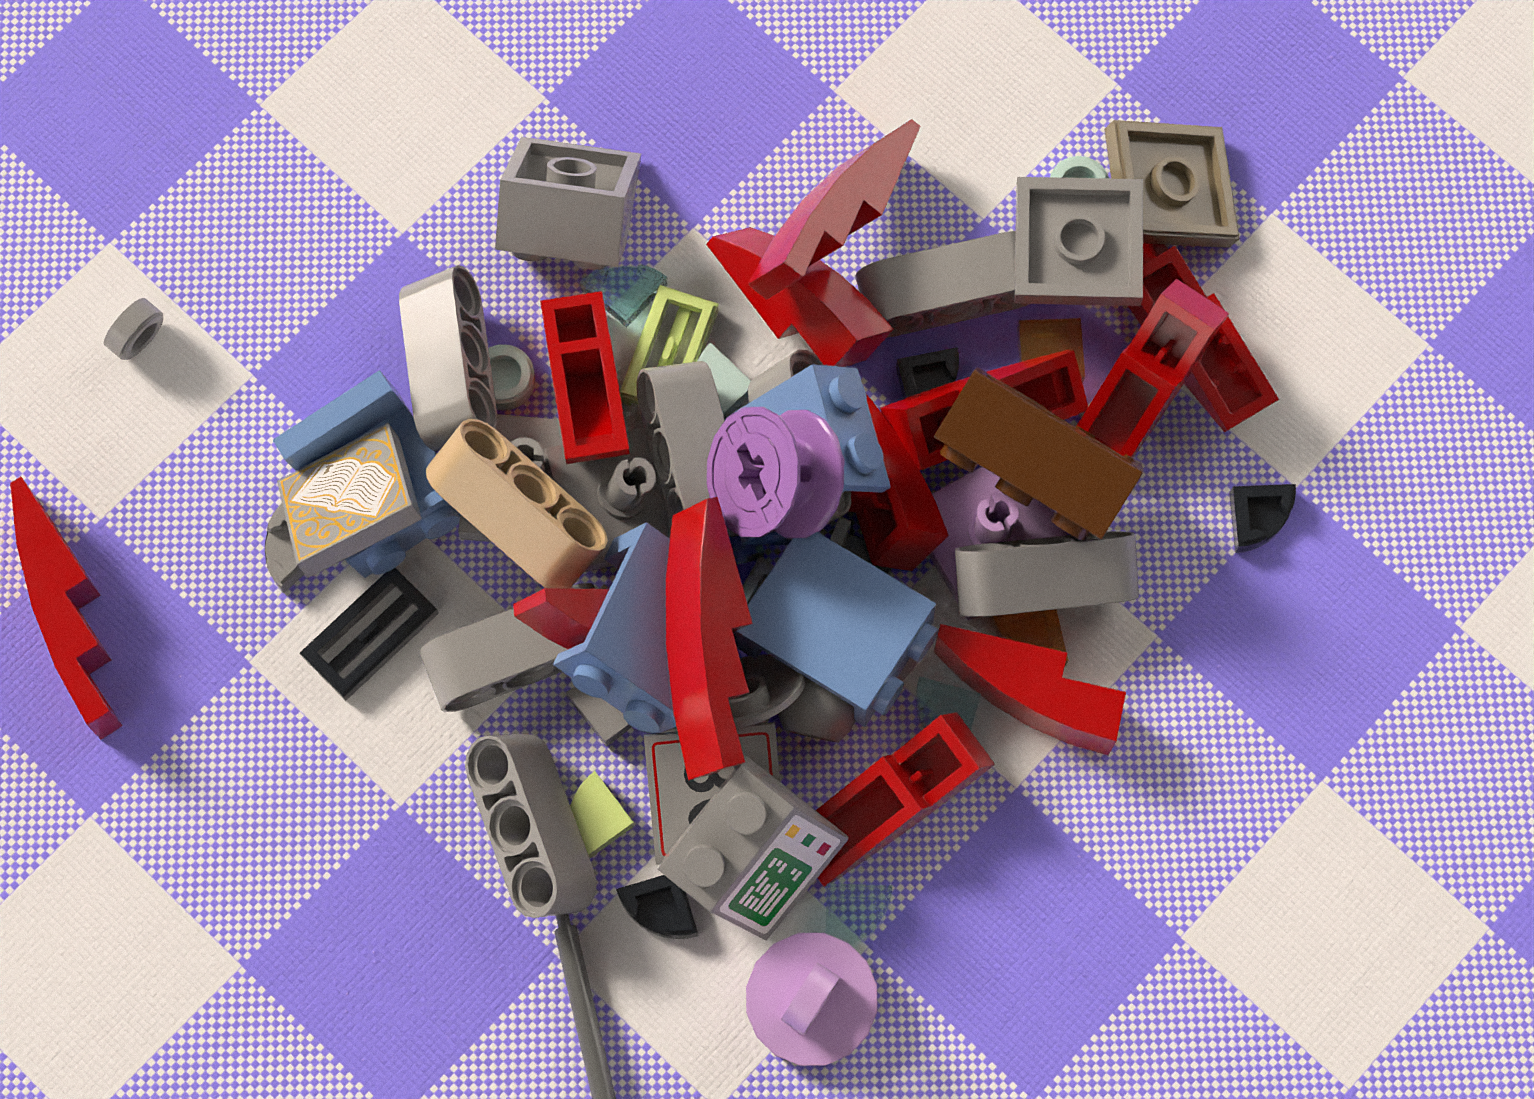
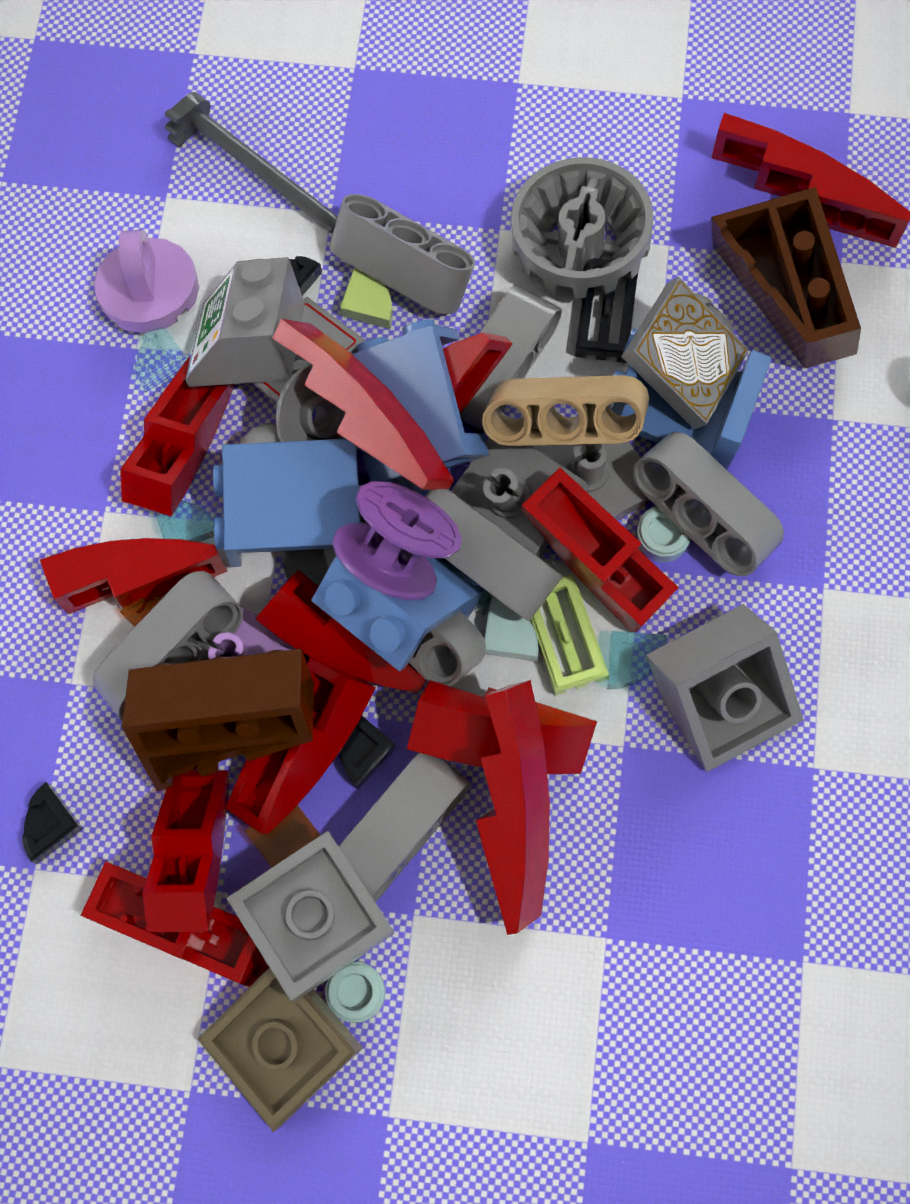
camera: 150 degrees right, 0 degrees up
(172, 512) = (792, 274): none -> reddish brown wedge
(283, 750) = (577, 194): none -> light grey gear

